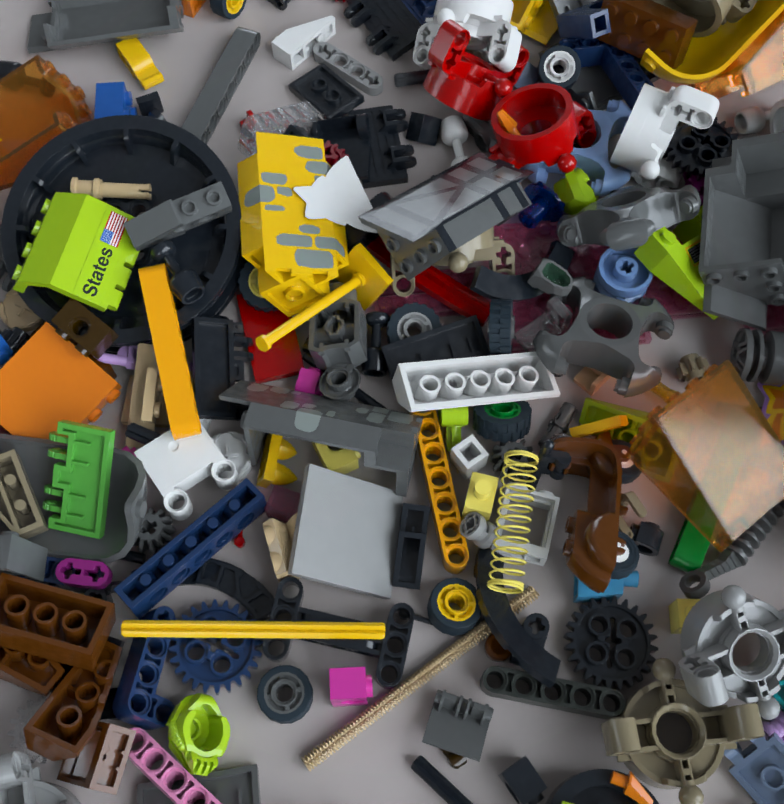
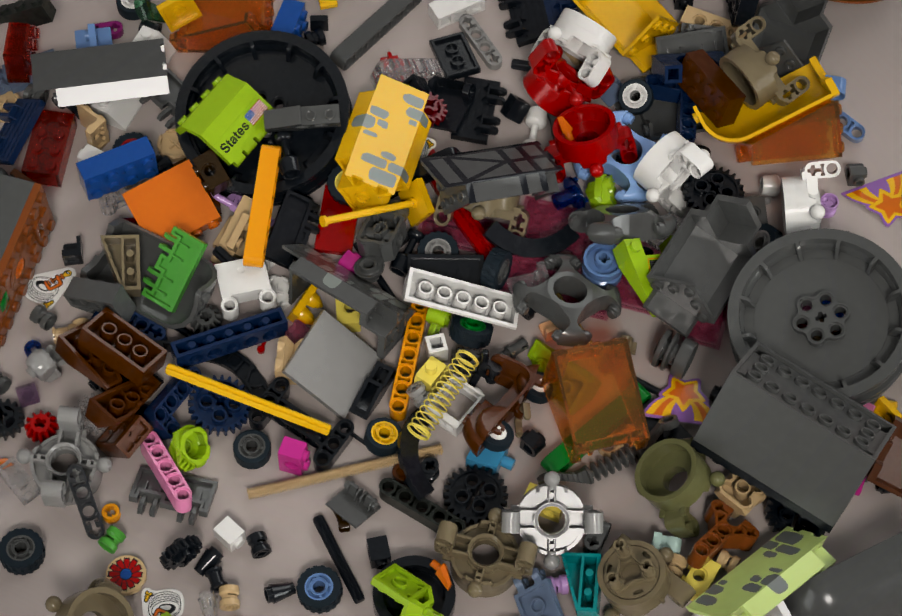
camera: 20 degrees right, 5 degrees down
(83, 579) = (156, 327): magenta beam -> none
(100, 189) = (255, 79): tan pin -> none
(337, 196) = (419, 138): white sticker -> none
(551, 278) = (544, 247): dark grey rock -> none
(599, 426) = (529, 359): yellow tile -> none

